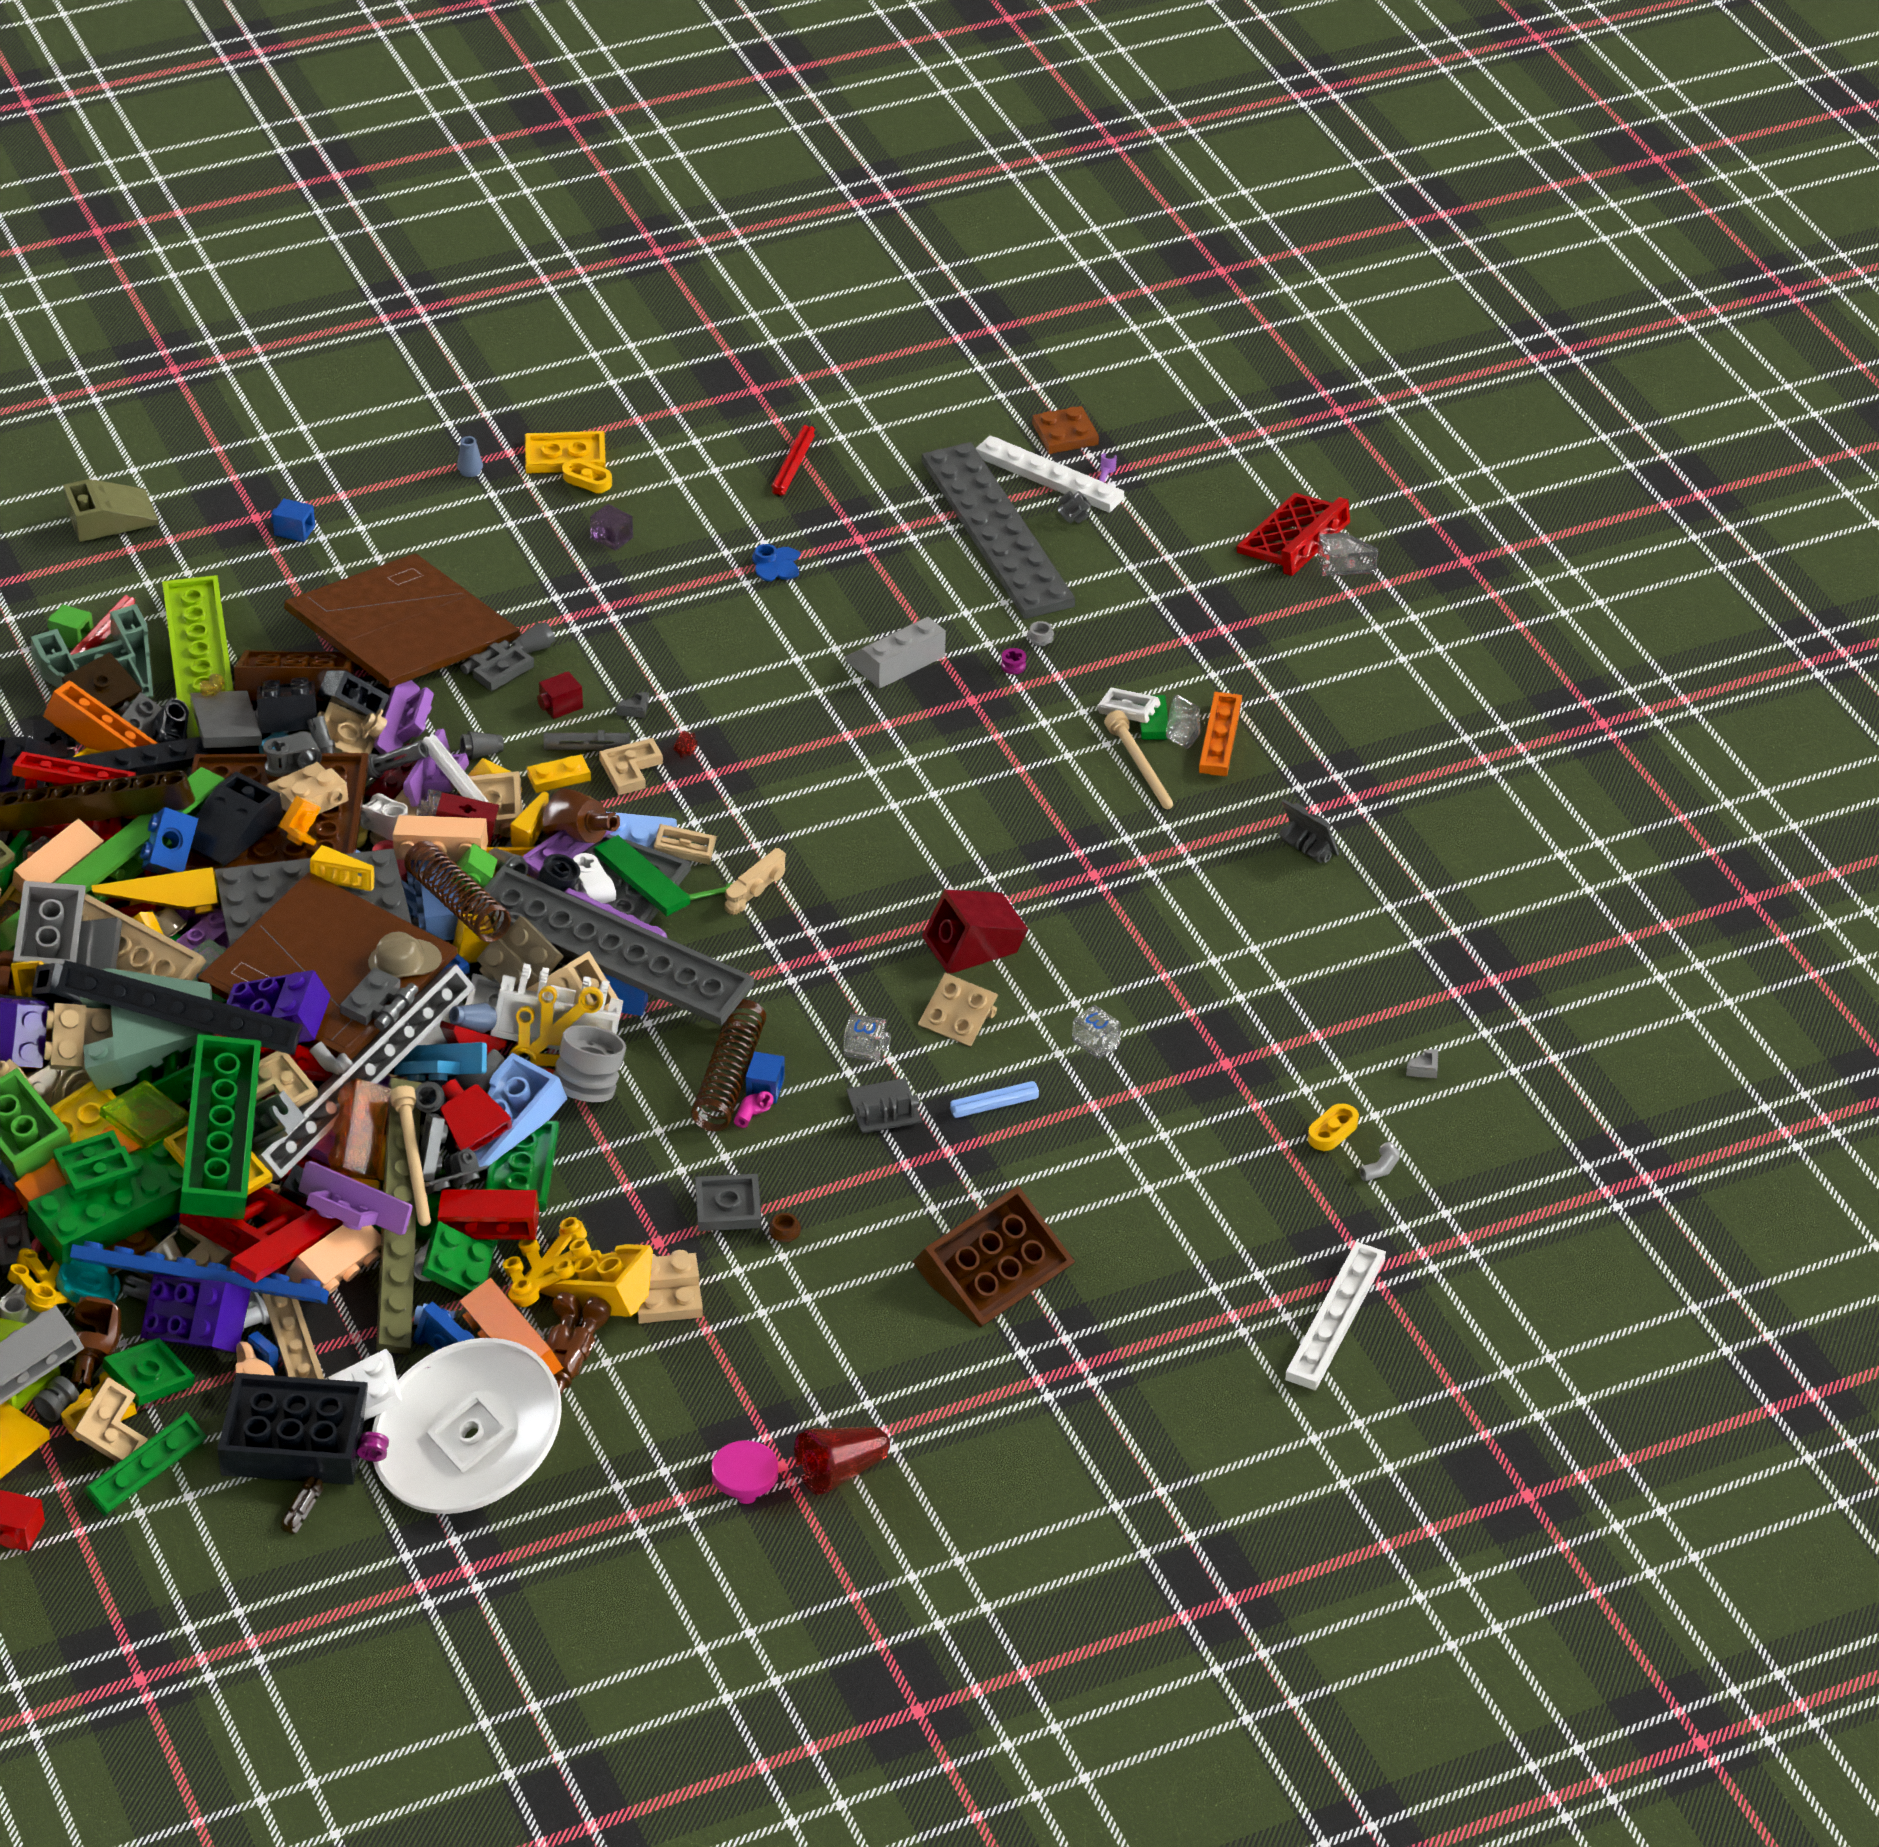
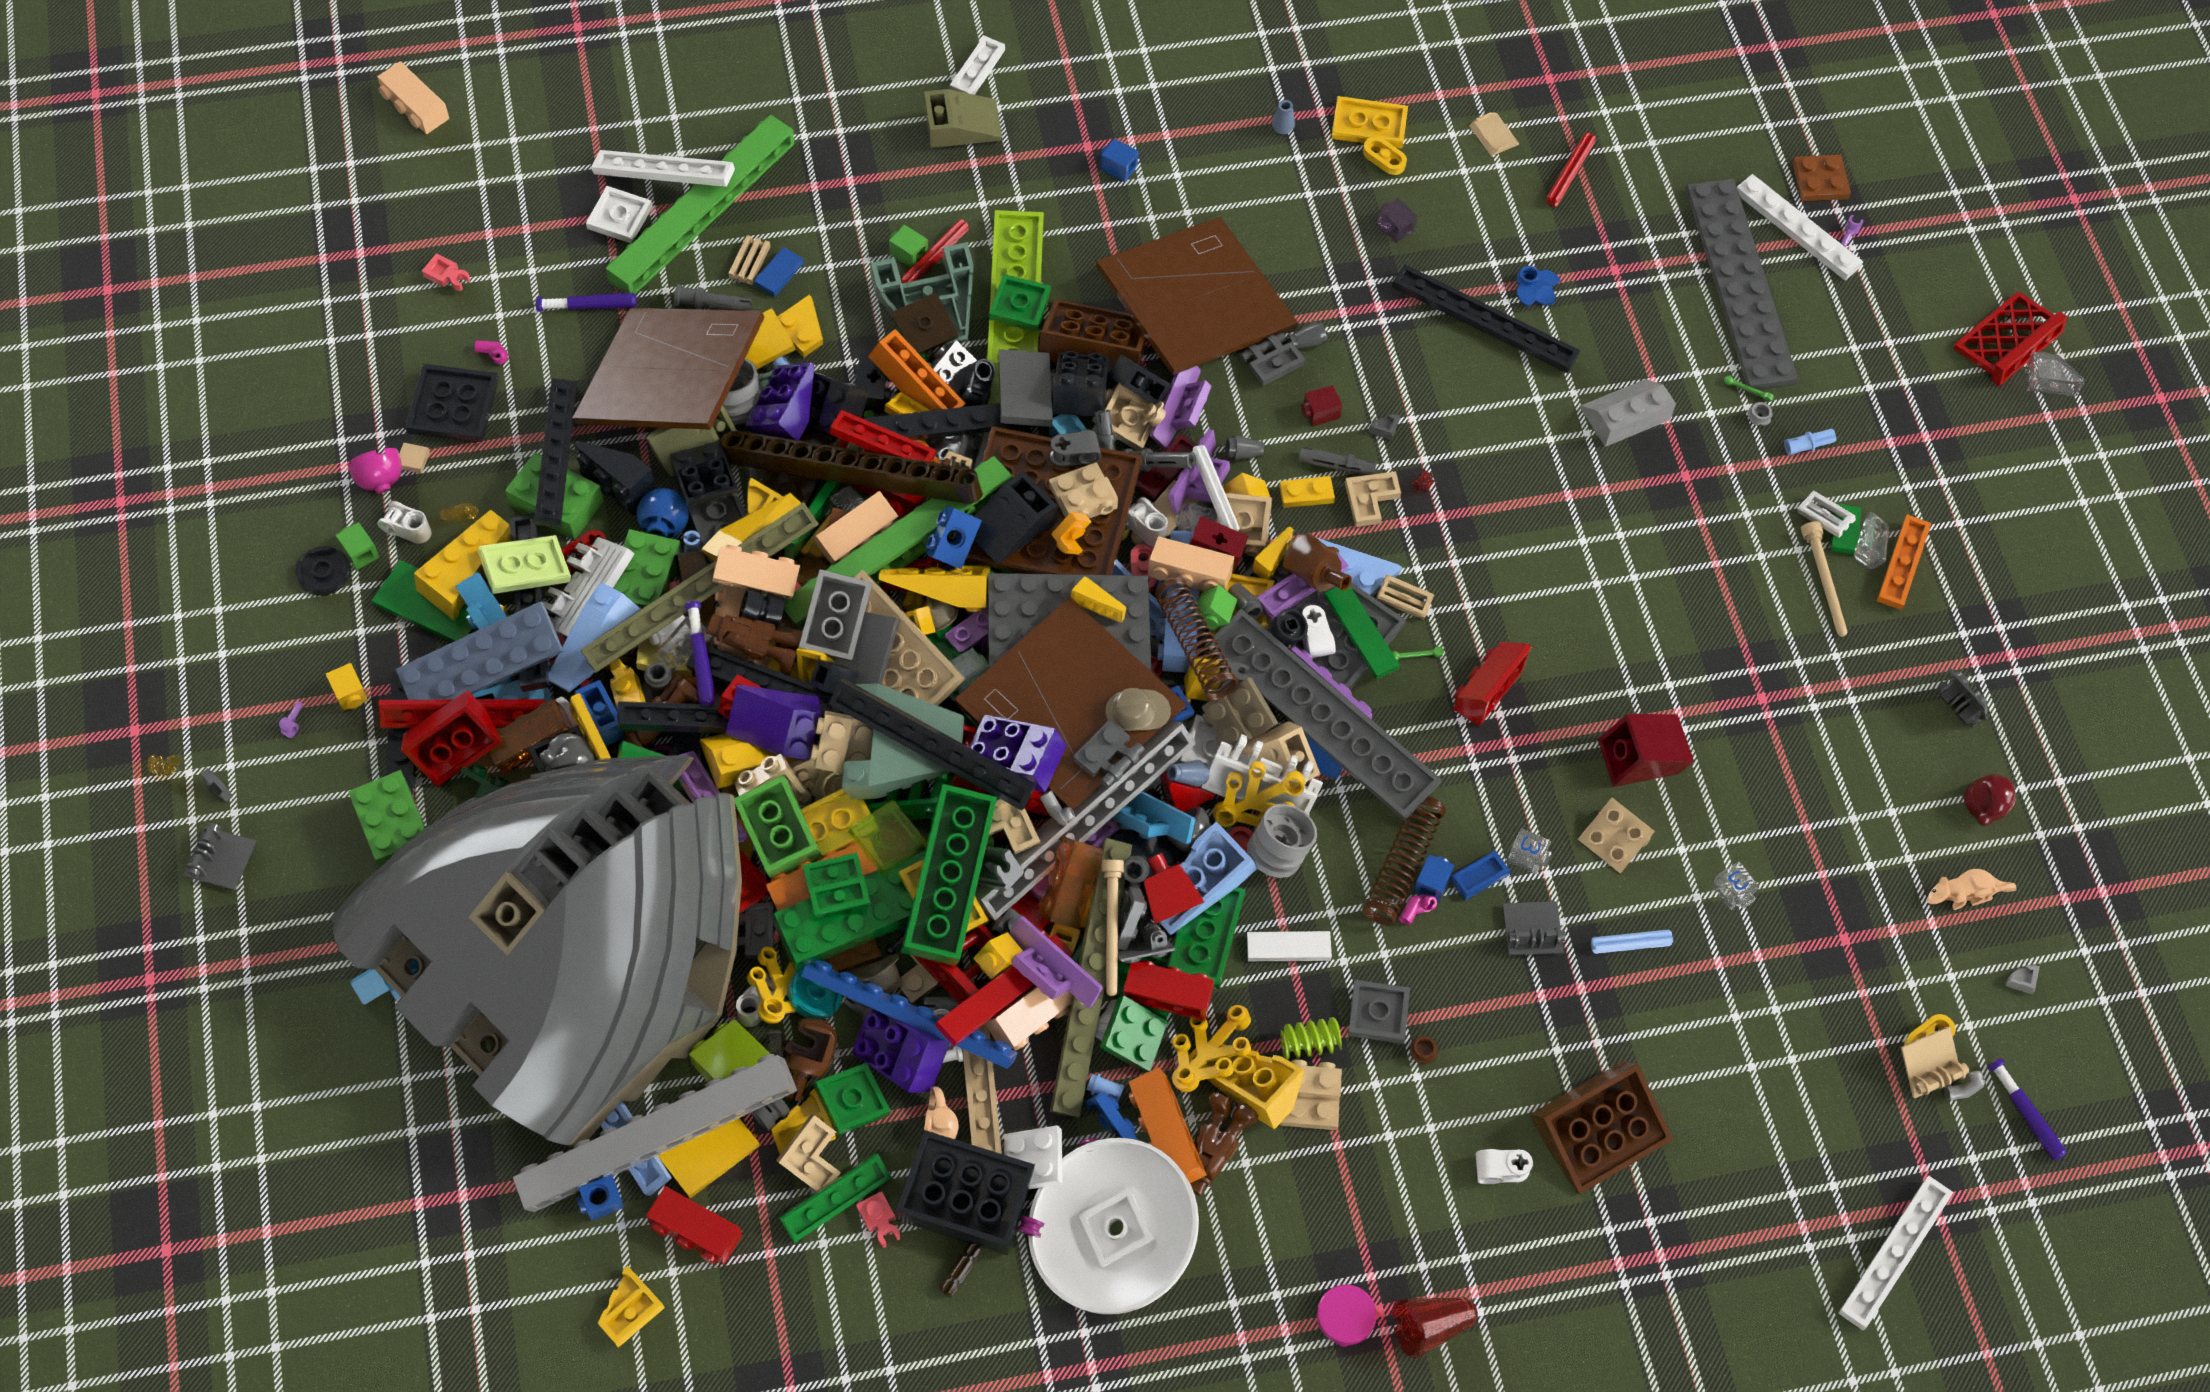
camera: 10 degrees right, 20 degrees up
(121, 460) = (978, 66): none -> white plate
(198, 1473) = (877, 1215): none -> coral plate
(205, 651) = (1020, 302): none -> green plate
(213, 686) = (1020, 348): clear yellow arm -> none
(264, 1350) = (952, 1098): blue tile -> none
(287, 1203) = (997, 955): none -> yellow brick
(616, 1164) = (1289, 946): none -> white tile
(658, 1230) = (1310, 1037): none -> lime piece
(702, 443) = (1493, 133): none -> tan piece
(725, 596) = (1486, 318): none -> black plate
(754, 881) = (1459, 653): tan hinge -> none
(795, 898) = (1491, 681): none -> red slope
(816, 1070) = (1479, 875): none -> blue tile
(890, 1313) = (1498, 1166): none -> white piece
(1002, 612) = (1728, 380): none -> bright green hinge
(1013, 661) = (1726, 445): magenta bush -> none
(1074, 507) = (1815, 274): dark grey gear -> none
(1098, 648) = (1809, 441): none -> light blue axle
(1339, 1144) = (1932, 1062): none -> tan hinge
(1349, 993) = (1972, 886): none -> light nougat animal
(1355, 914) = (1990, 798): none -> dark red piece
(1466, 1184) = (2033, 1118): none -> dark purple piece

